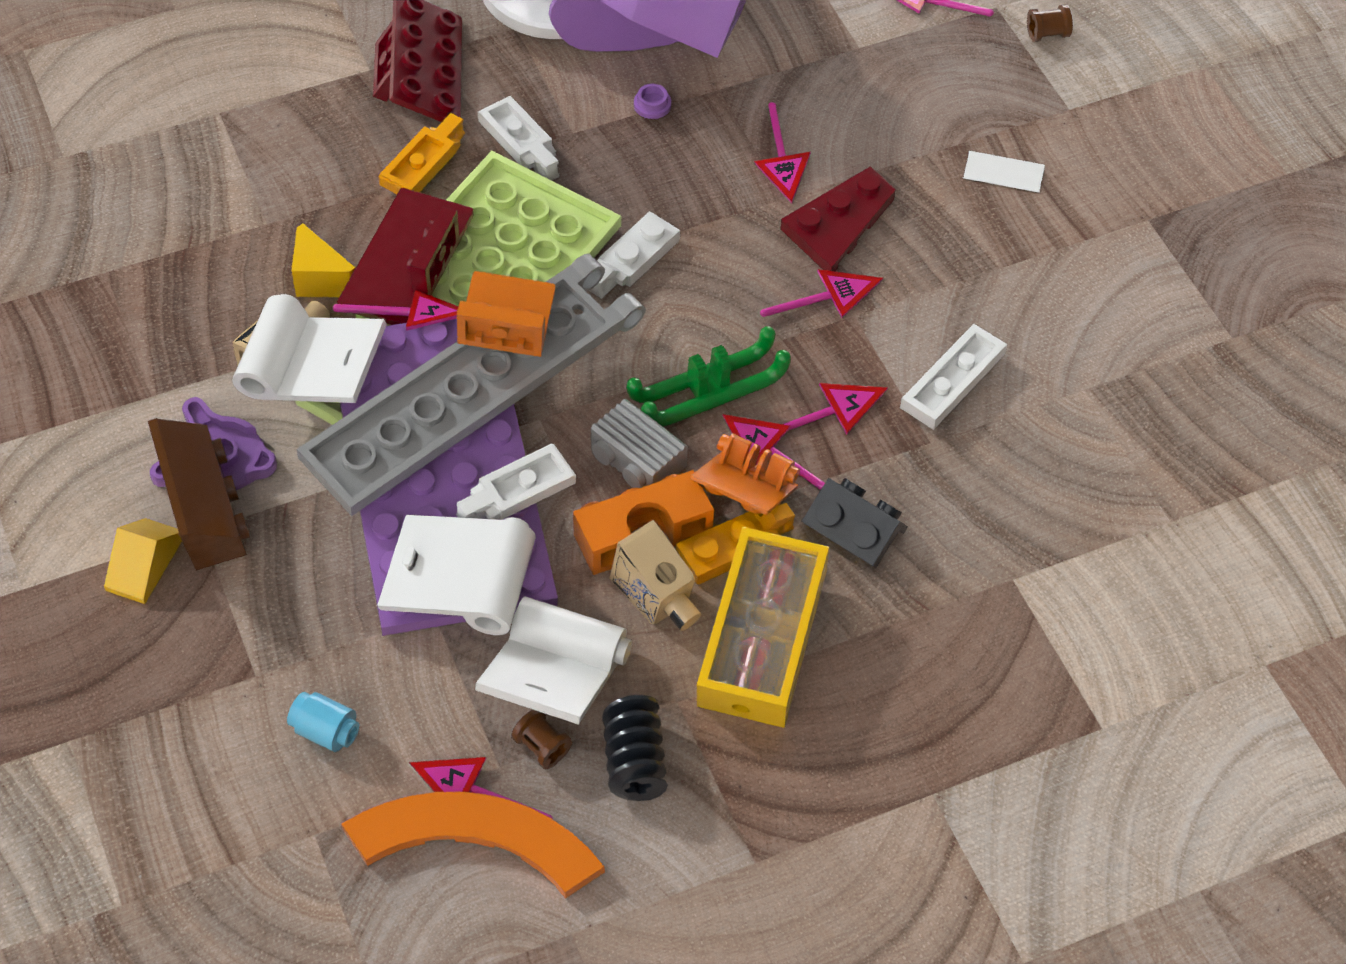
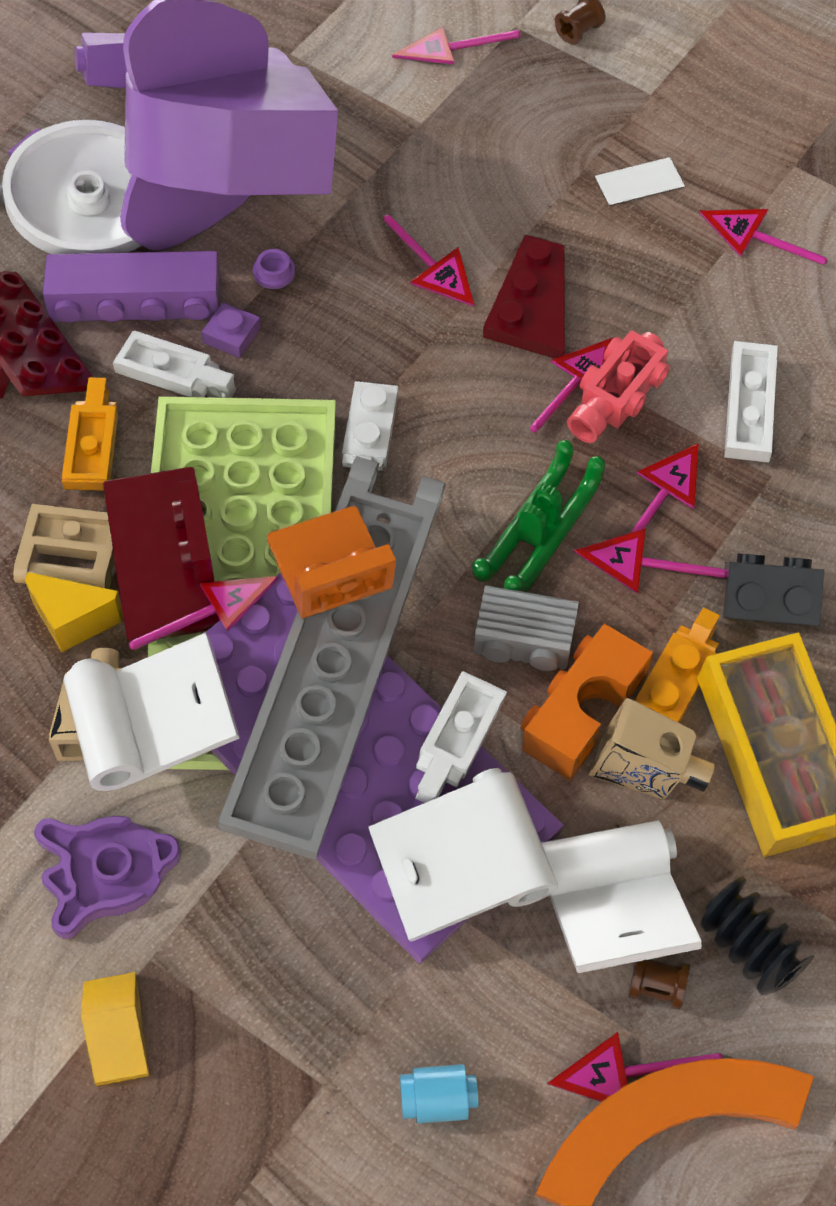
camera: 30 degrees left, 5 degrees up
(199, 491) = (137, 923): reddish brown slope -> none
(352, 213) = (66, 534): none -> tan plate
(535, 64) = (132, 286): none -> medium lavender brick
(587, 131) = (231, 330): none -> medium lavender plate
(737, 476) = (653, 607): orange hinge -> none
(851, 310) = (612, 390): none -> coral brick
(1061, 243) = (741, 225): none -> piece

